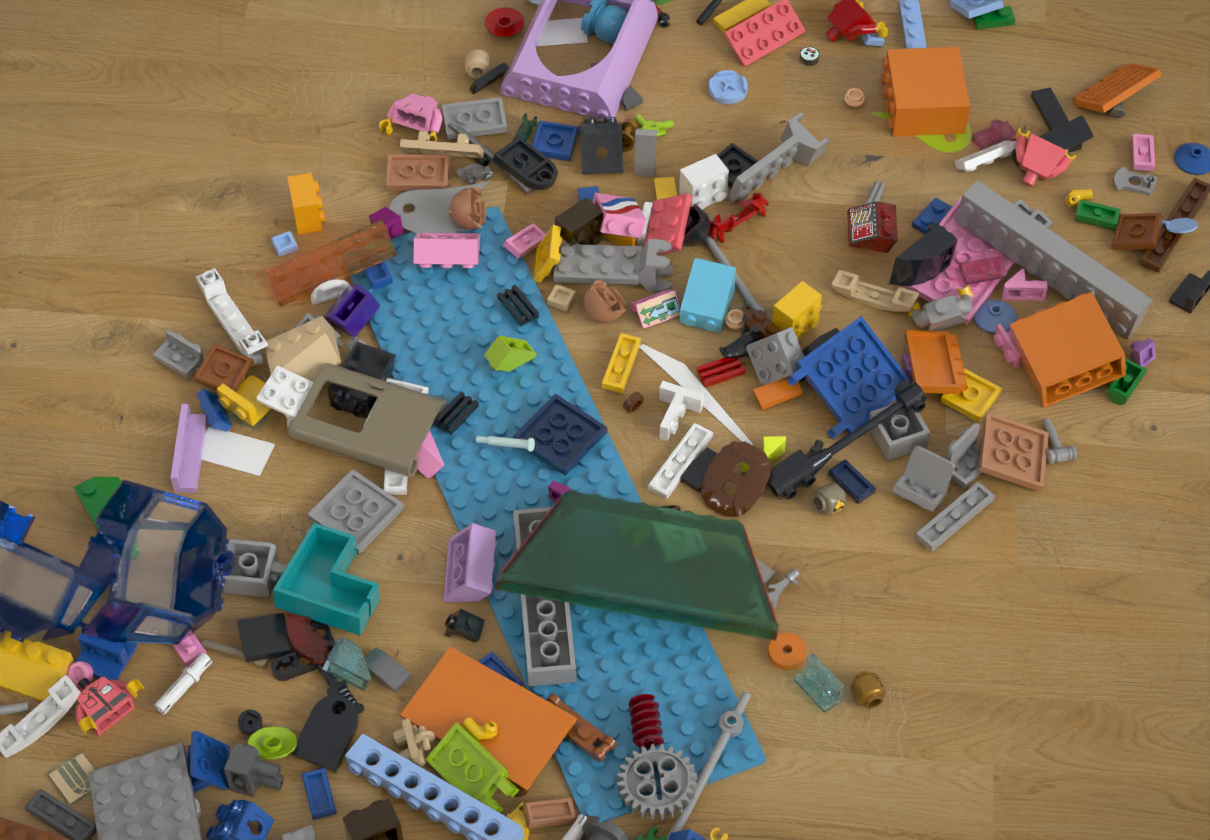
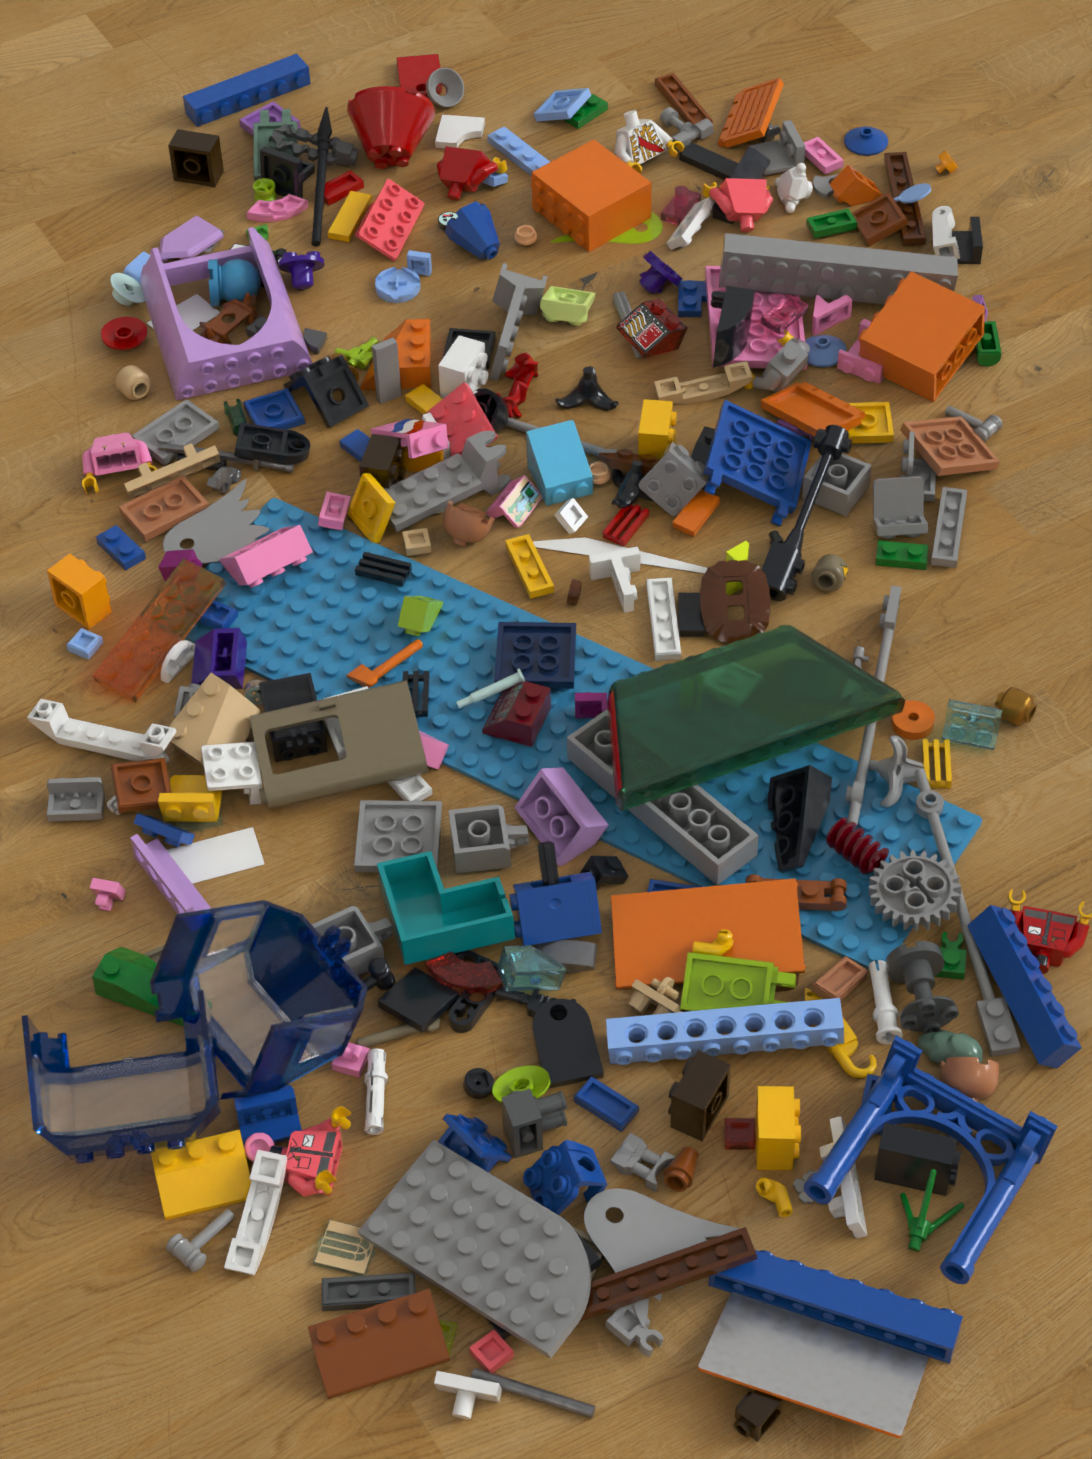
camera: 35 degrees left, 5 degrees down
(142, 433) = (106, 892): none -> bright pink tile
(252, 601) = (379, 975): none -> black piece
(366, 185) = (120, 547): none -> blue plate
(402, 630) = (555, 905): none -> blue piece
(403, 548) = (483, 838): none -> light grey hinge
(436, 379) = (366, 677): none -> orange piece
(467, 209) = (254, 509): nougat cylinder -> none
(489, 78) = (156, 389): black tile -> none
(509, 473) = (519, 713): none -> dark red slope
(567, 54) = (218, 330): none -> dark orange piece
(638, 662) = (798, 808): none -> black wedge
(665, 38) = (301, 268): none -> dark purple plate
(683, 147) = (414, 355): none -> orange wedge
(684, 341) = (571, 515): none -> white plate
(728, 684) = (895, 770): none -> light grey piece
(755, 78) = (419, 262): none -> light blue tile
(784, 681) = (936, 746): none -> yellow tile
(786, 250) = (587, 392): none -> black piece
(814, 74) = (474, 231): none -> blue cone
(832, 170) = (566, 305): none -> yellowish green slope
(835, 565) = (887, 623): none -> light grey bar
(851, 481) = (820, 546): dark blue tile -> none
(900, 517) = (902, 555): none -> green plate
(921, 183) = (657, 274): none -> dark purple plate
(1004, 66) = (642, 141): none -> torso
(1055, 75) = (687, 130): none -> light grey bar
(1077, 49) = (681, 99): none -> dark orange tile
(1080, 194) = (798, 218): yellow arm -> none
(1092, 169) = (793, 187): none -> white rock
(1110, 133) = (784, 152): none -> light grey bracket
(1143, 194) = (854, 187): none -> orange slope
(1177, 272) = (942, 226): none -> white leg

